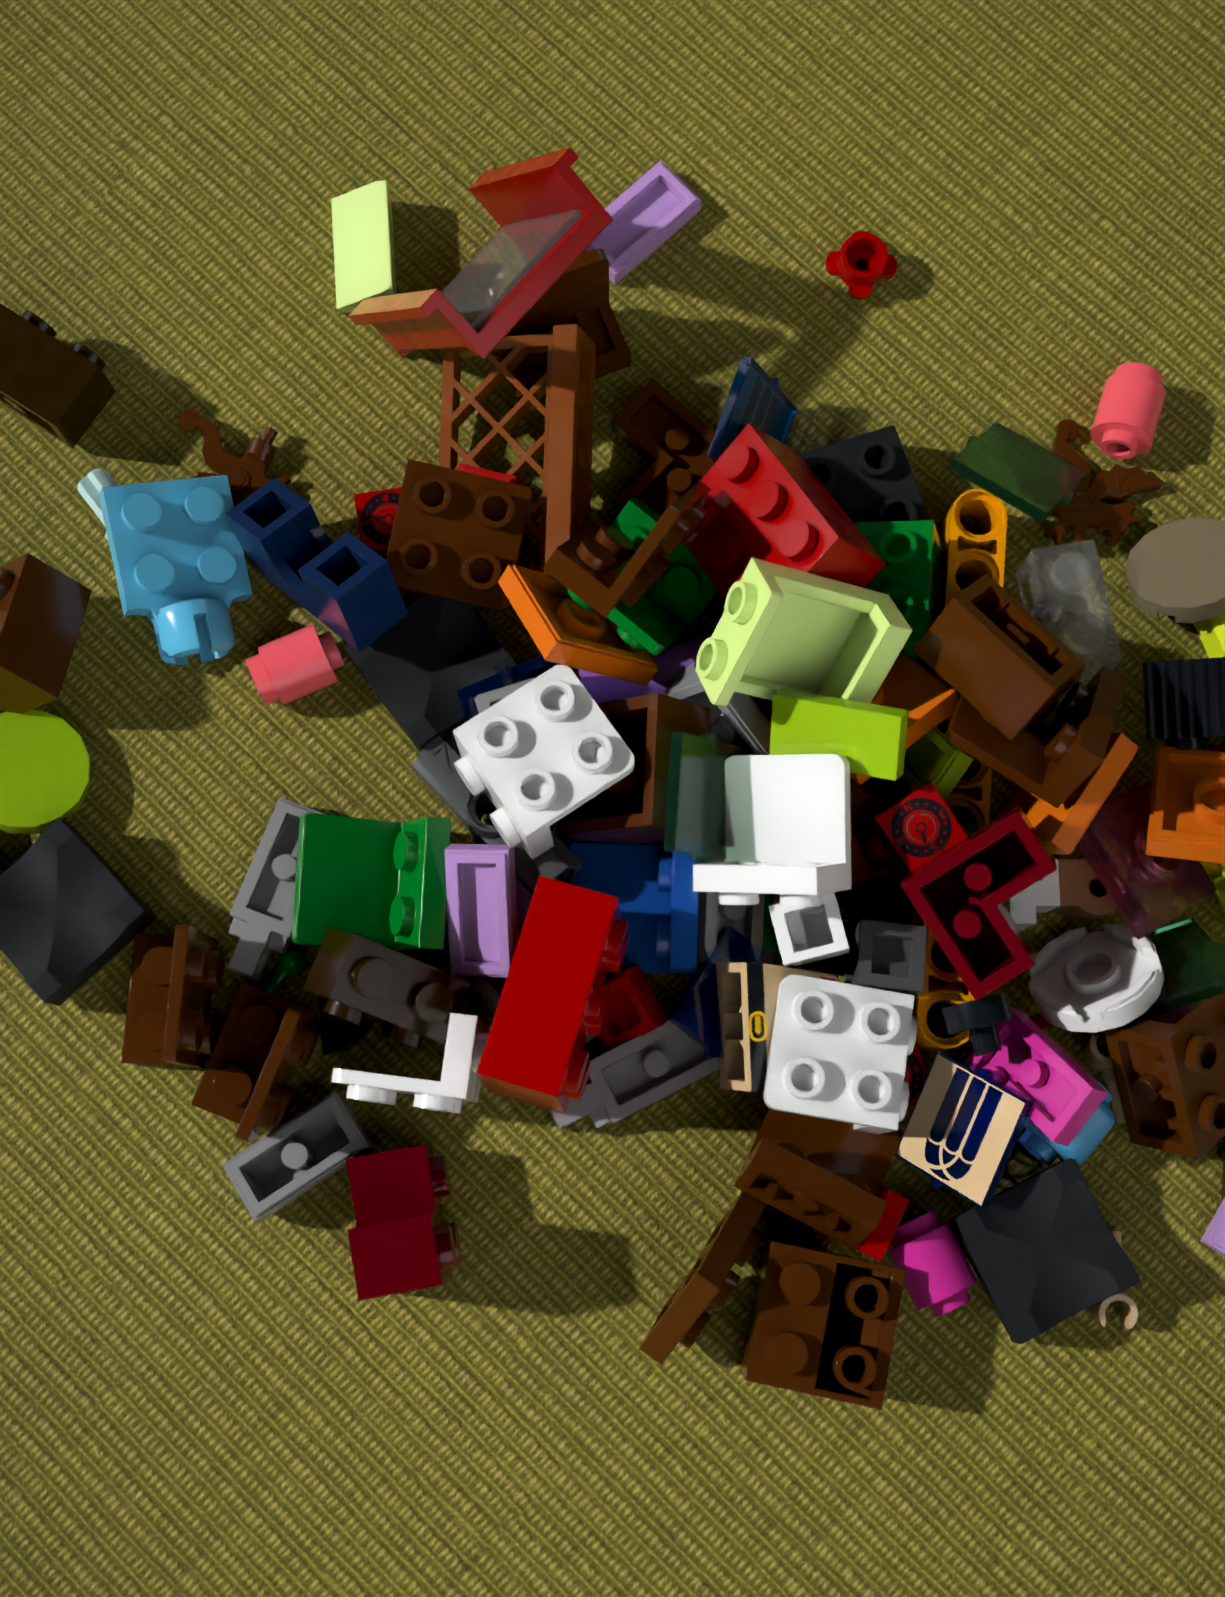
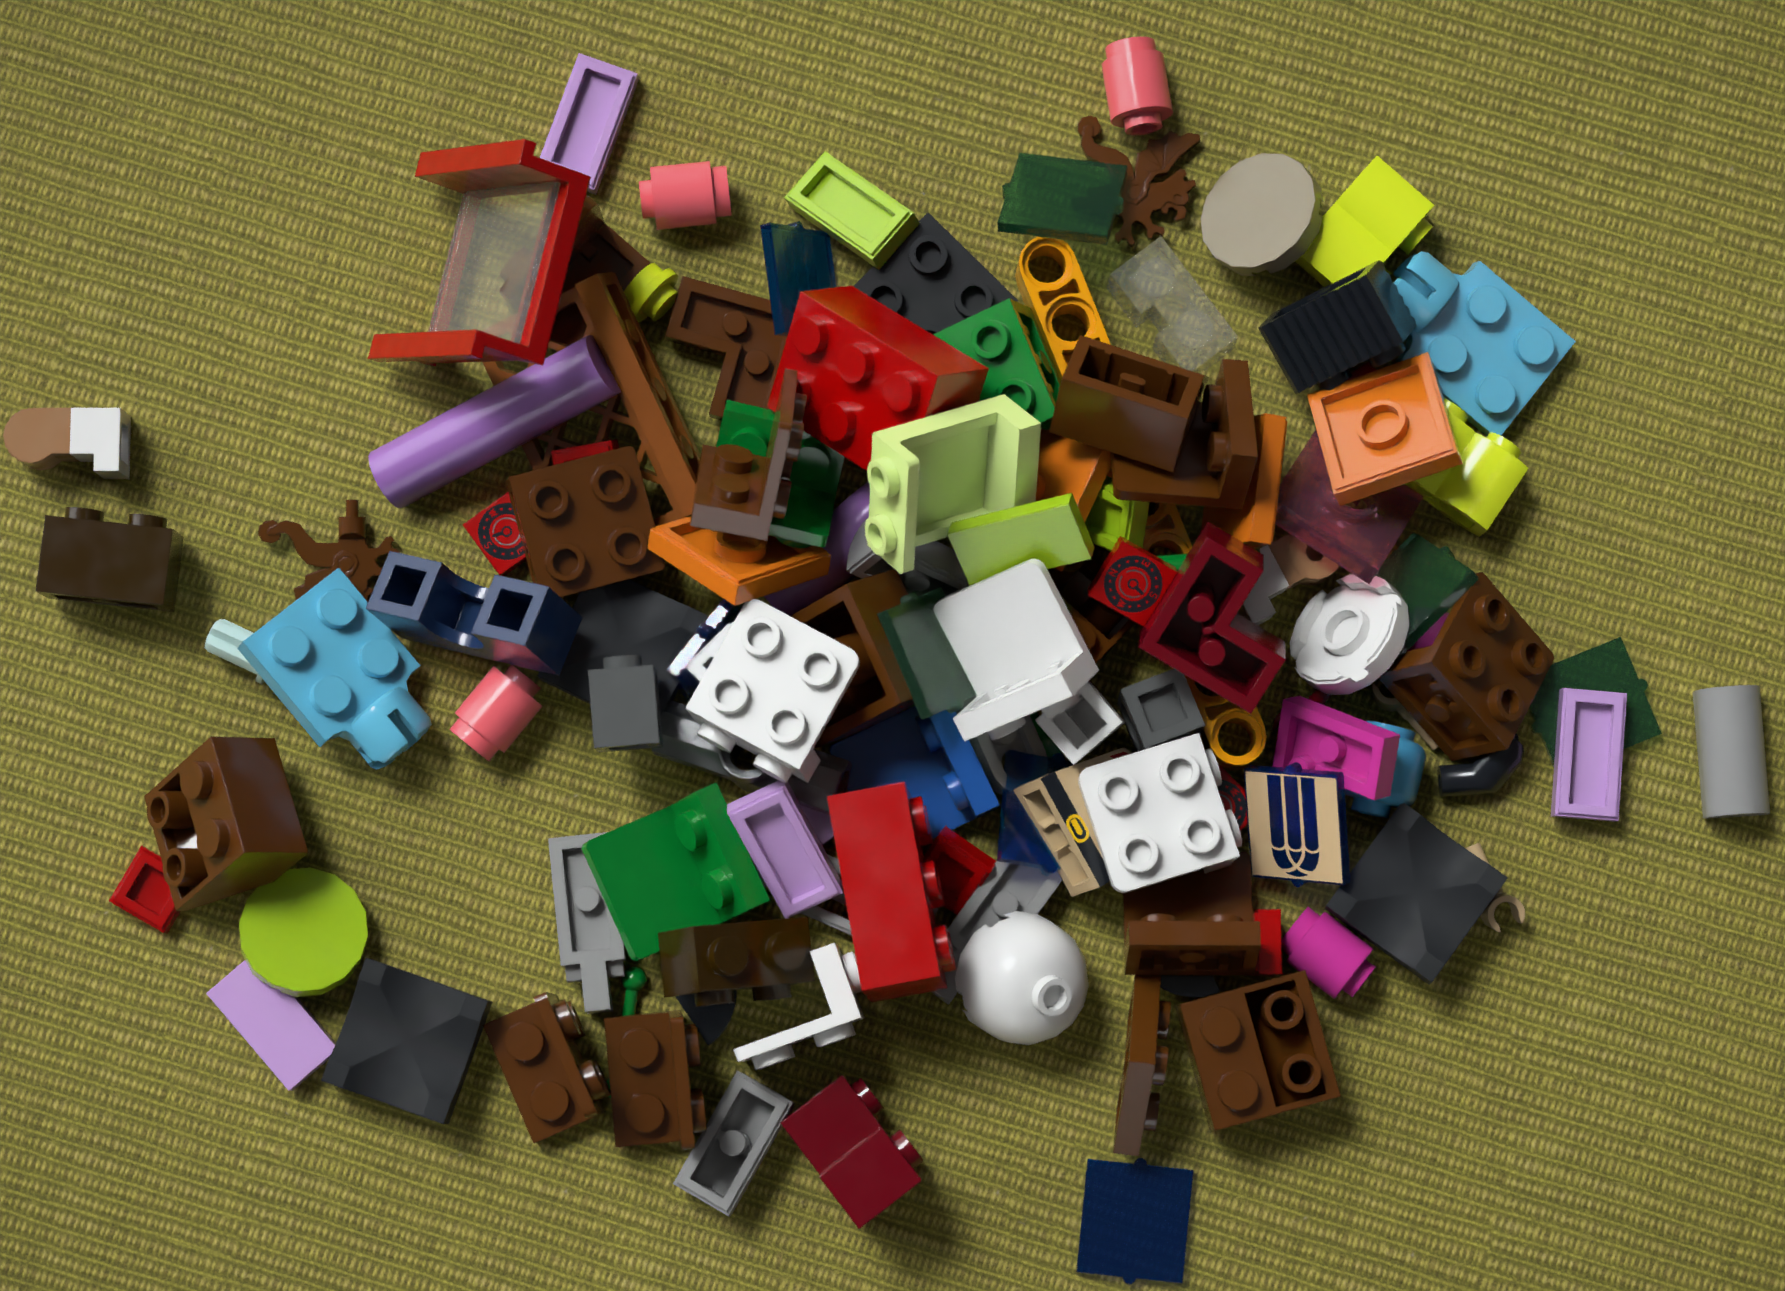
camera: 25 degrees left, 5 degrees up
(62, 257) = (53, 435): none -> leg
(363, 245) = (342, 281): yellowish green slope -> none
(403, 708) = (625, 705): none -> dark grey brick
(424, 417) = (493, 423): none -> medium lavender brick
(618, 379) = (652, 292): none -> neon yellow plate
(627, 1422) = (1134, 1221): none -> clear blue piece
(636, 1141) = (1022, 979): none -> white cylinder
(690, 314) = (685, 195): none -> coral brick
(828, 394) = (852, 210): none -> lime tile
(866, 248) = (819, 44): red plate -> none
(980, 1020) = (1265, 726): black tile -> none
(1153, 1172) = (1484, 775): none -> black arm

